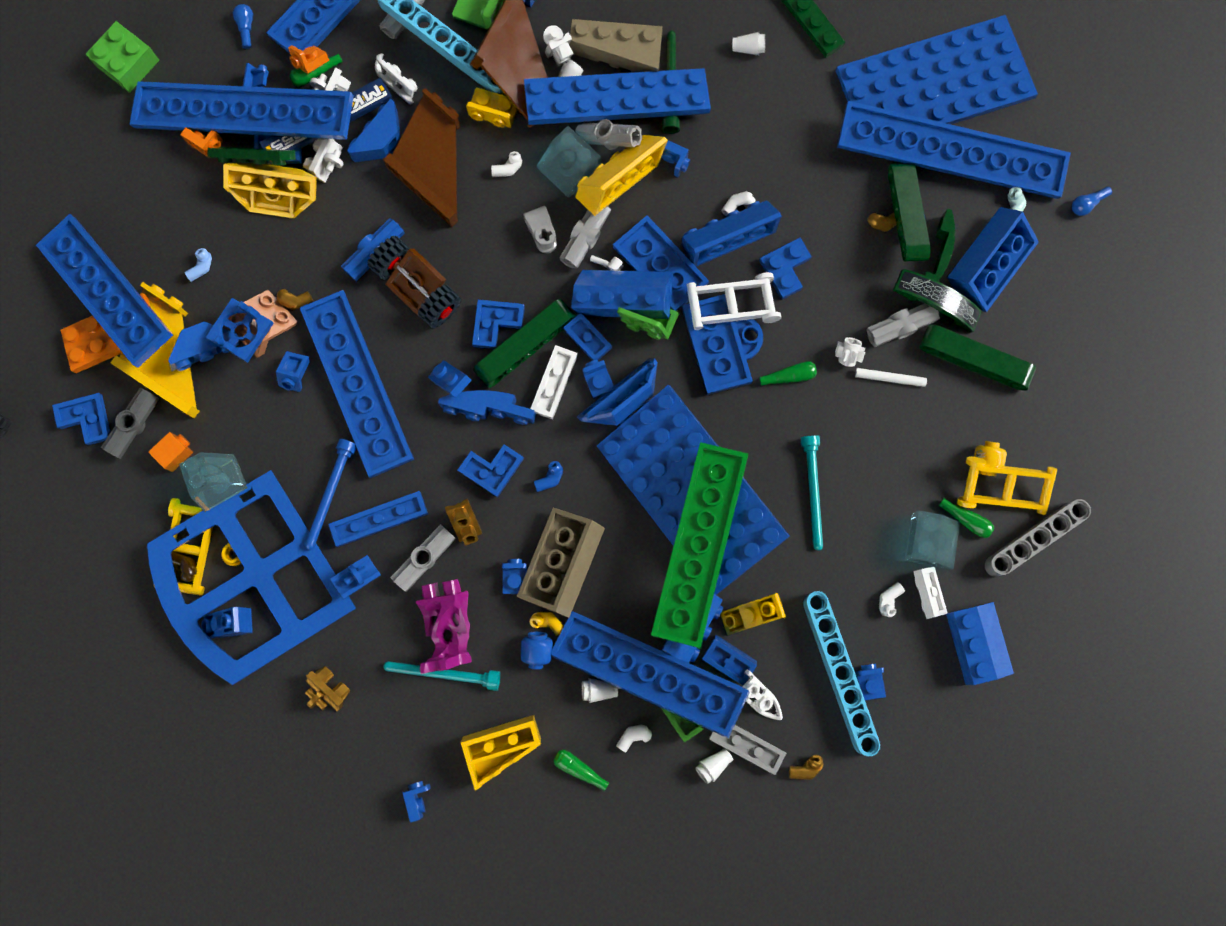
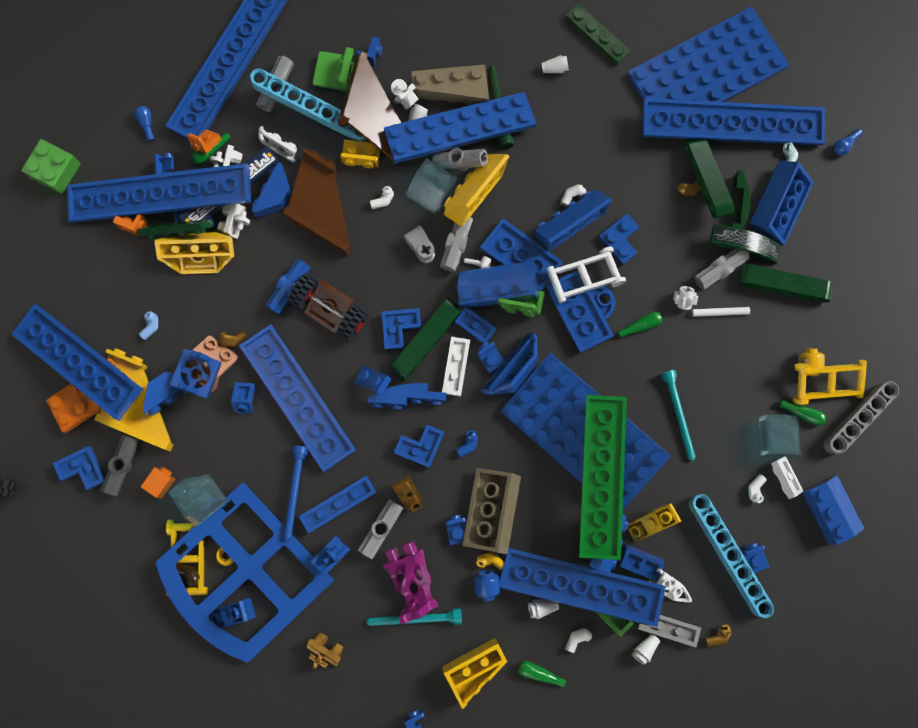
camera: 15 degrees left, 0 degrees up
(677, 154) = (517, 164): blue bracket -> none

